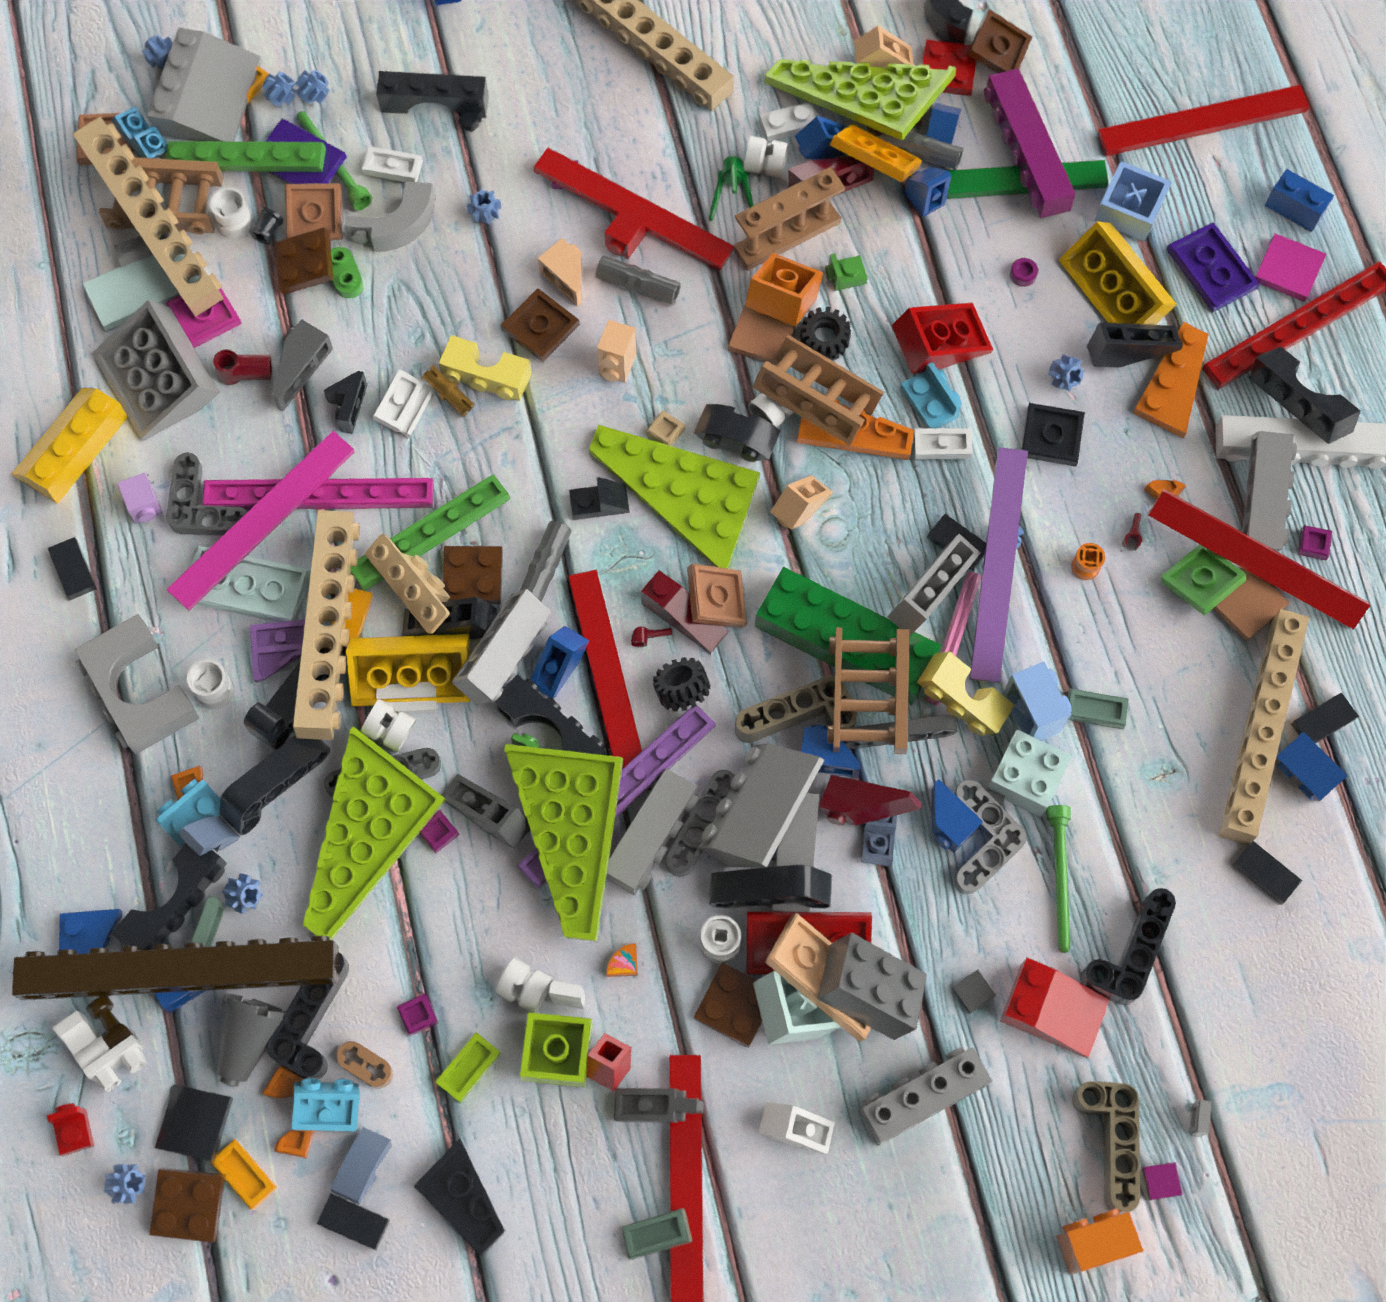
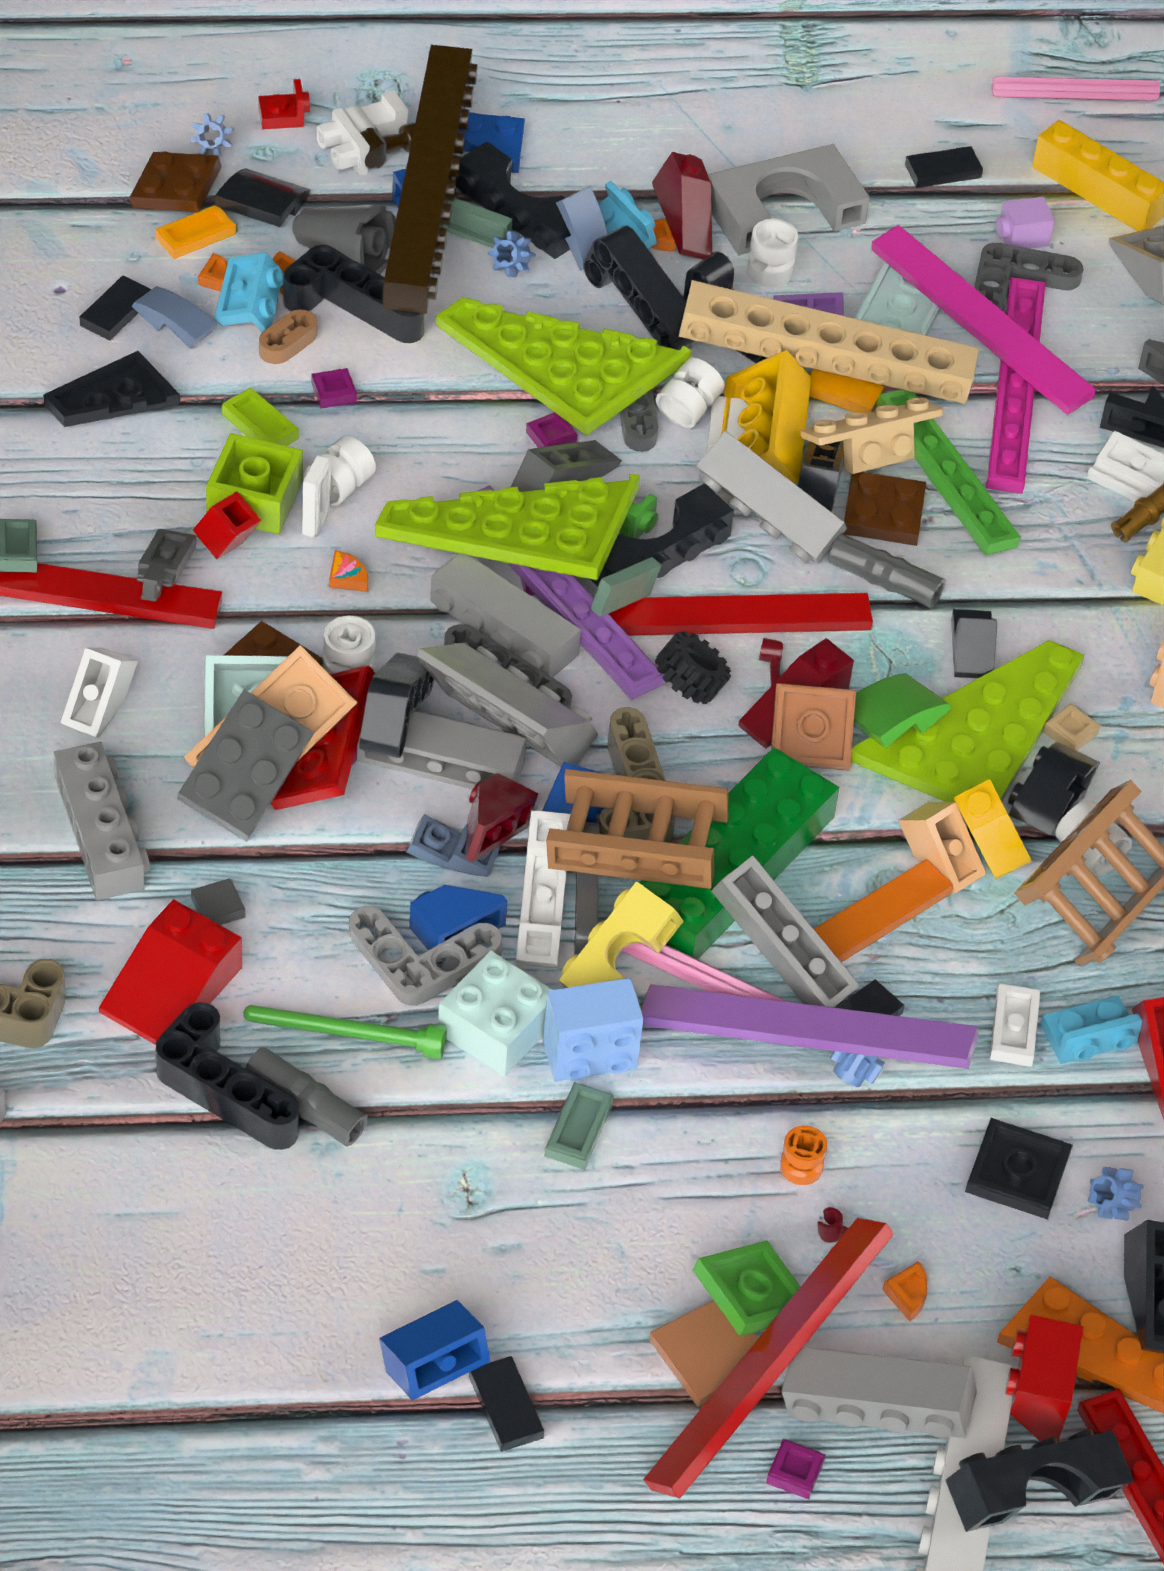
camera: 95 degrees right, 20 degrees down
(158, 760) = (686, 203): none -> dark red slope
(558, 660) = (752, 563): blue slope -> none
(618, 740) = (625, 587): none -> sand green tile
(686, 541) = (894, 706): none -> bright green slope
(784, 468) = (992, 829): none -> yellow slope
(867, 539) = (884, 910): none -> orange tile
(875, 437) = (1044, 937): orange wing -> none
(918, 762) = (542, 896): none -> white slope
(1131, 892) = (315, 1099): none -> dark grey axle
(1231, 393) = (1045, 1375): none -> red slope
(1263, 727) = (513, 1309): tan brick -> none
(1267, 872) = (294, 1270): black tile -> none

